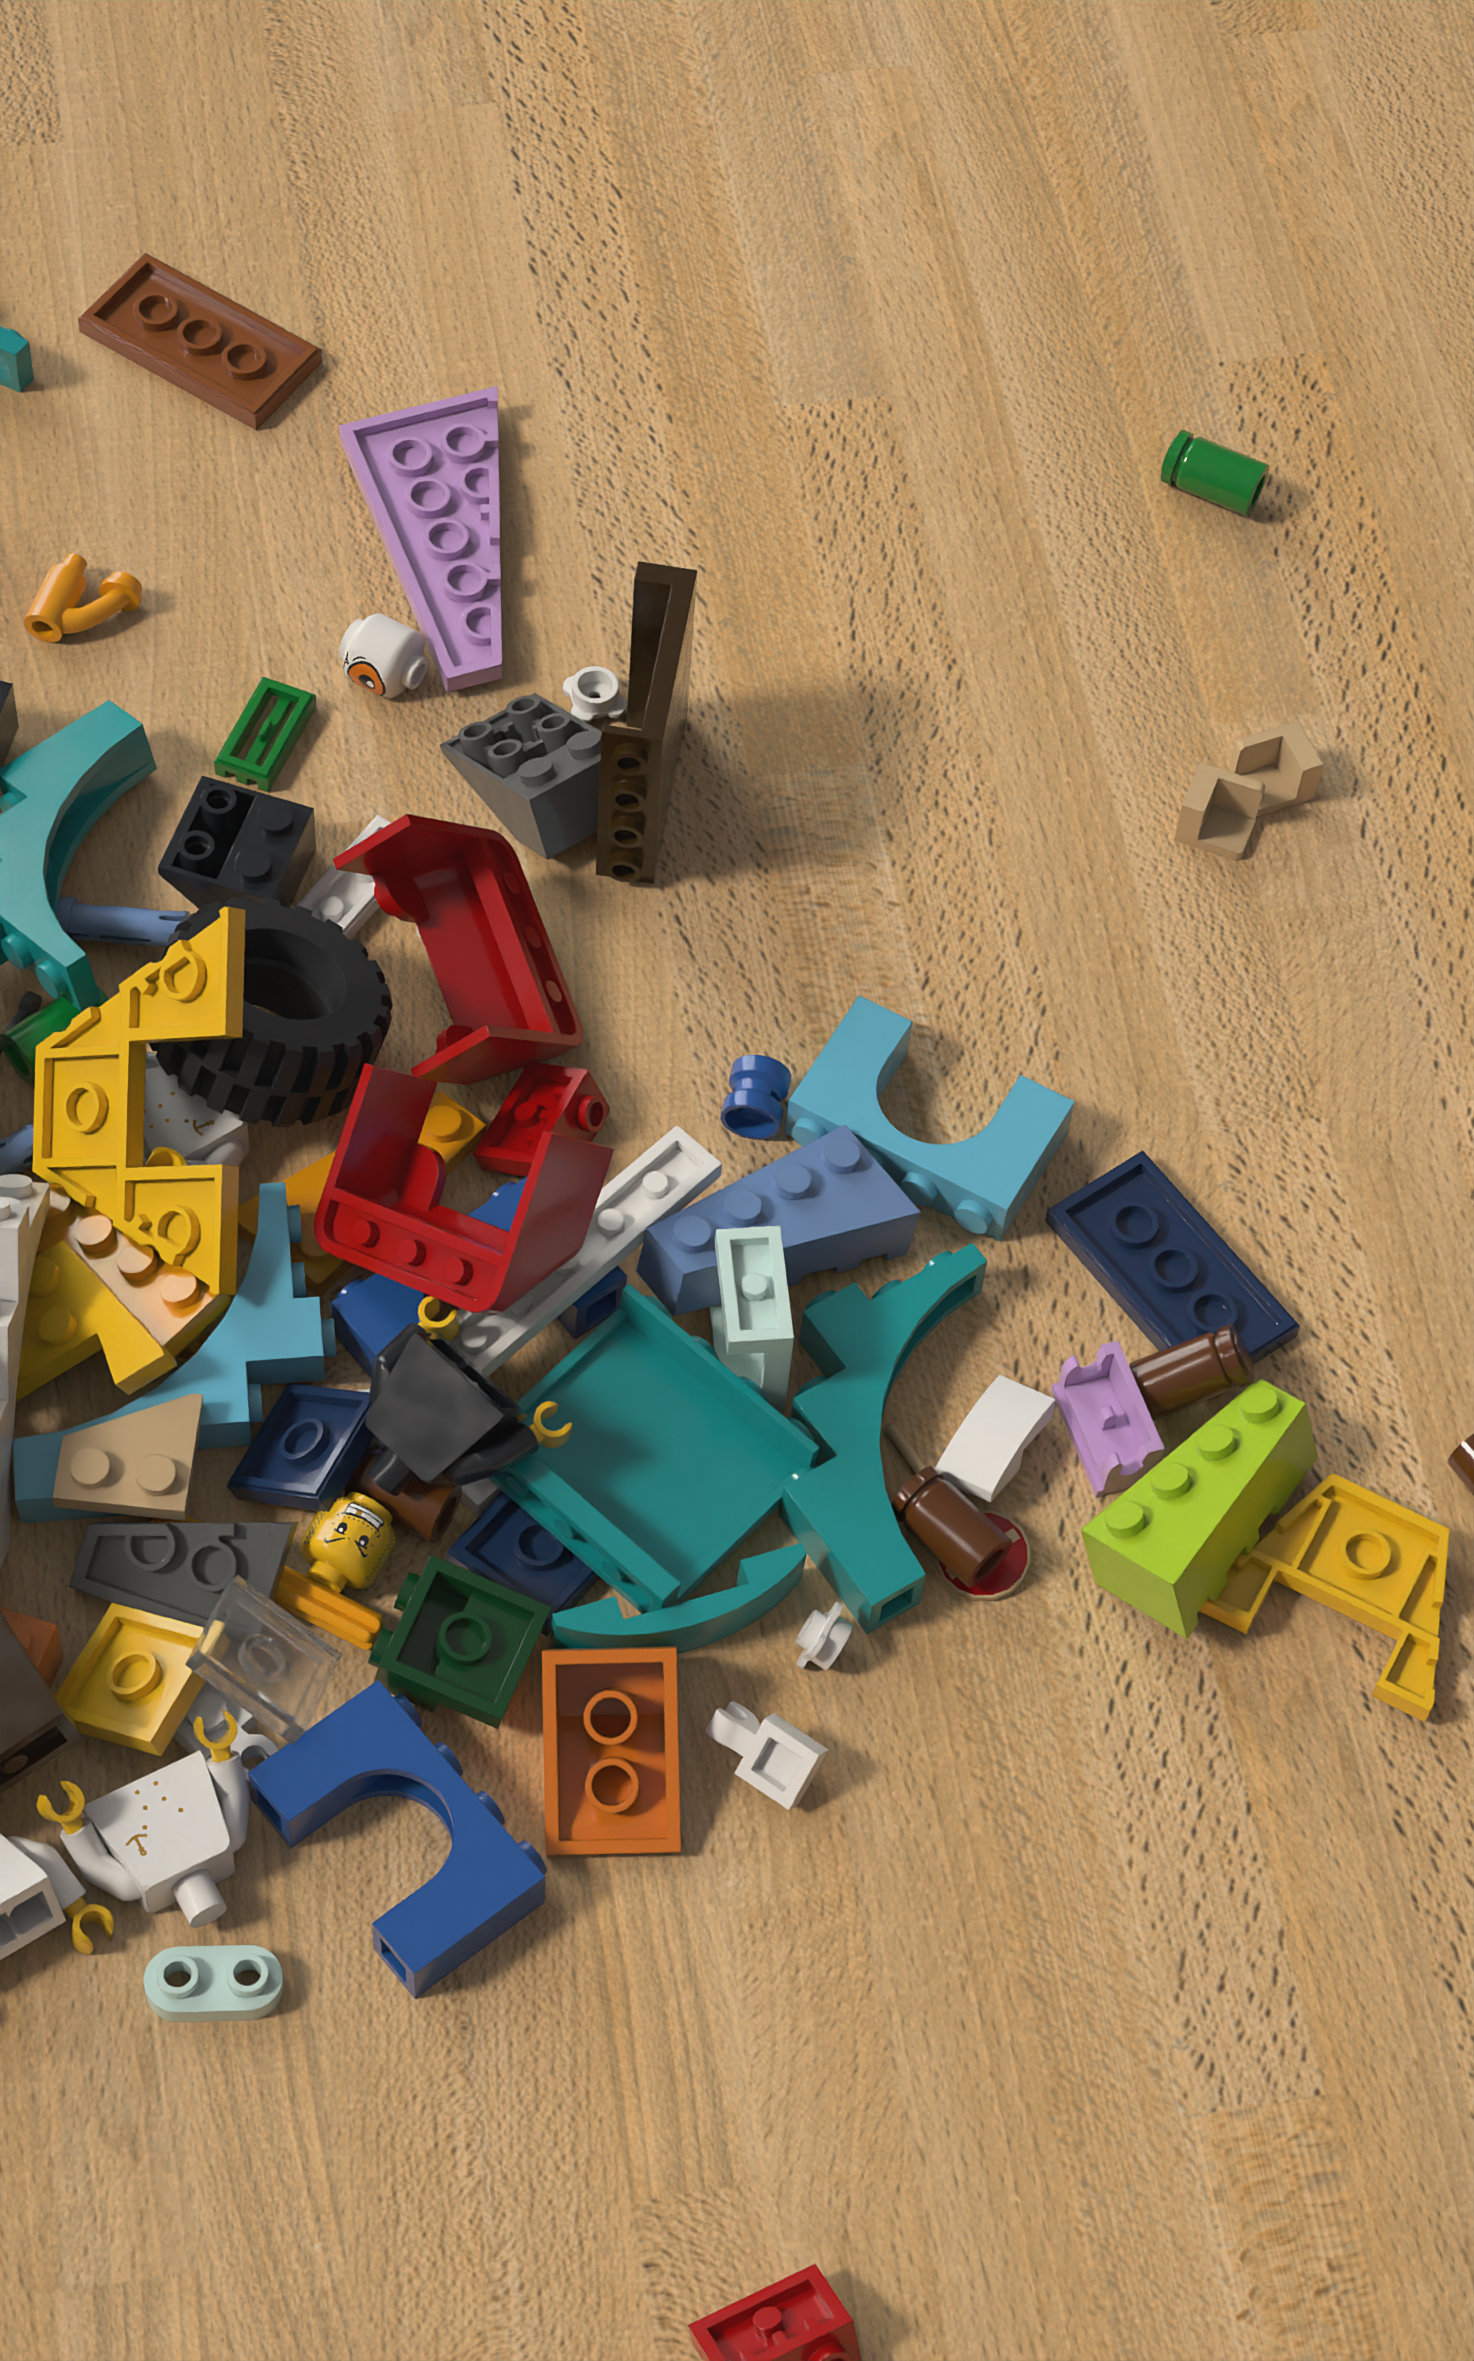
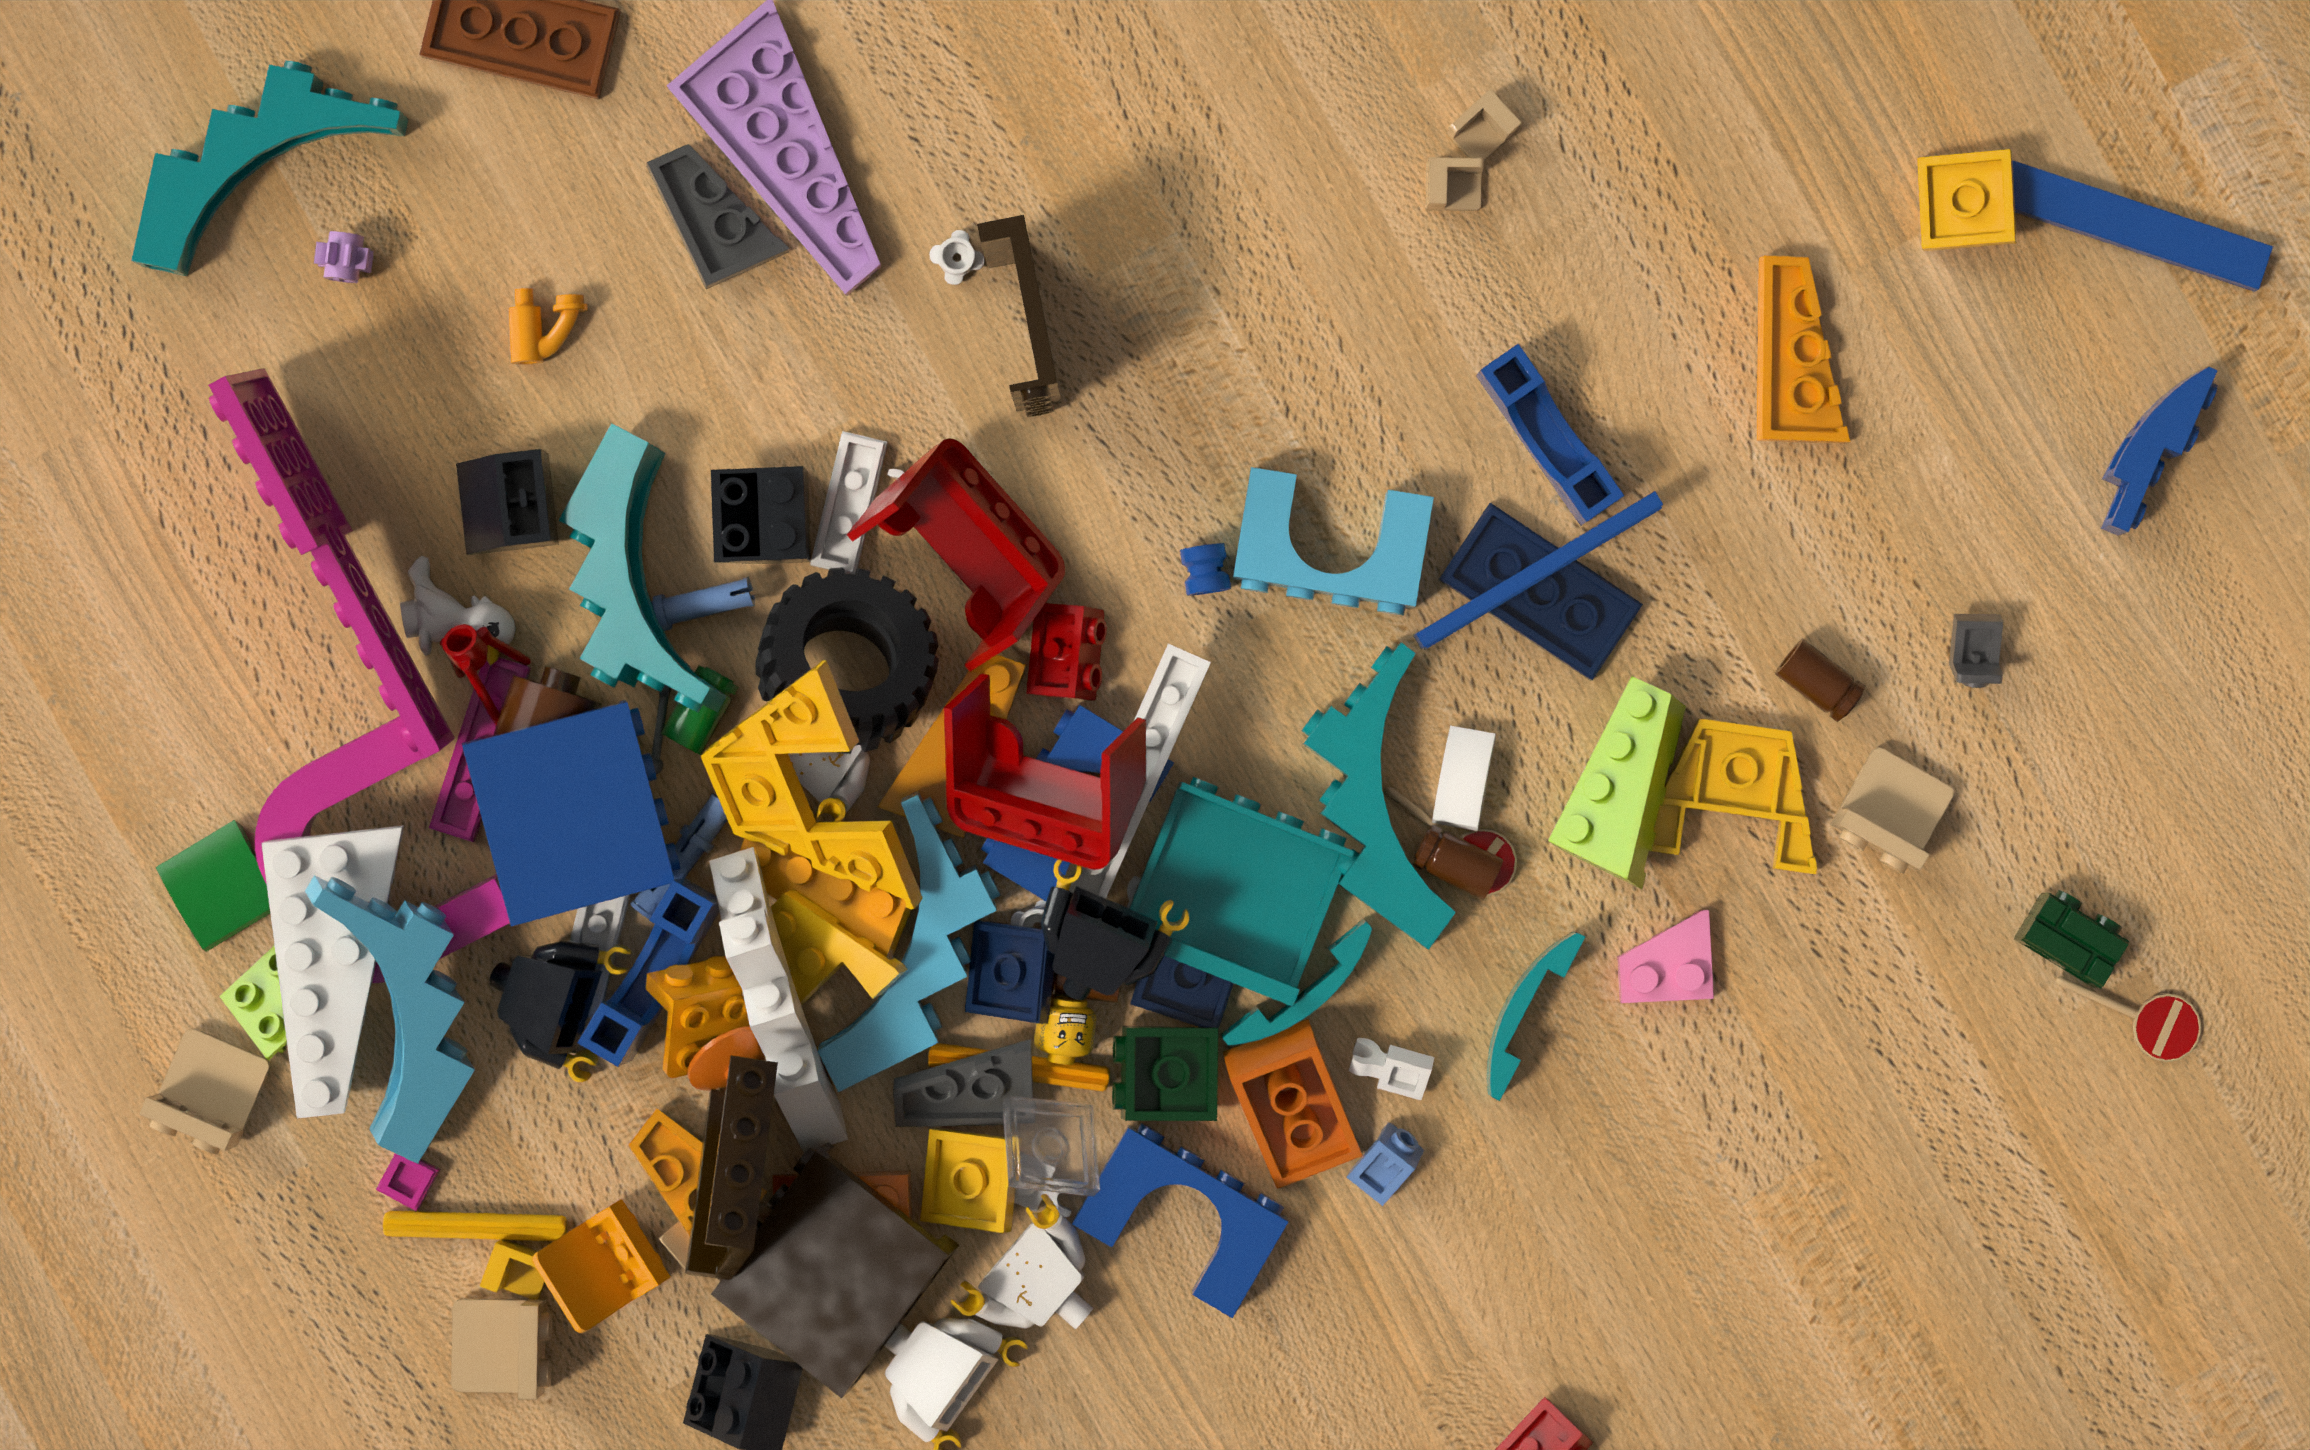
camera: 15 degrees left, 30 degrees up
(133, 1462) = (906, 1040): tan wing -> none
(212, 1989) = (1103, 1355): light aqua plate -> none
(249, 767) = (729, 426): green tile -> none
(323, 562) = (711, 220): none -> dark grey wing
(383, 655) = (788, 288): white head -> none
(533, 772) = (946, 346): dark grey slope -> none
(708, 1868) = (1386, 1163): none -> medium blue bracket
(754, 1321) = (1274, 775): light aqua panel -> none
(823, 1637) = (1401, 972): white plate -> none
(824, 1196) = (1270, 668): medium blue wedge -> none
(1031, 1693) = (1500, 1063): none -> teal slope
(1107, 1420) = (1535, 735): lavender hinge -> none
(1176, 1226) = (1538, 571): none -> blue tile
(1191, 1764) = (1670, 964): none -> bright pink wing
(1193, 1371) = (1583, 683): reddish brown piece -> none
(1262, 1146) = (1547, 436): none -> blue arch

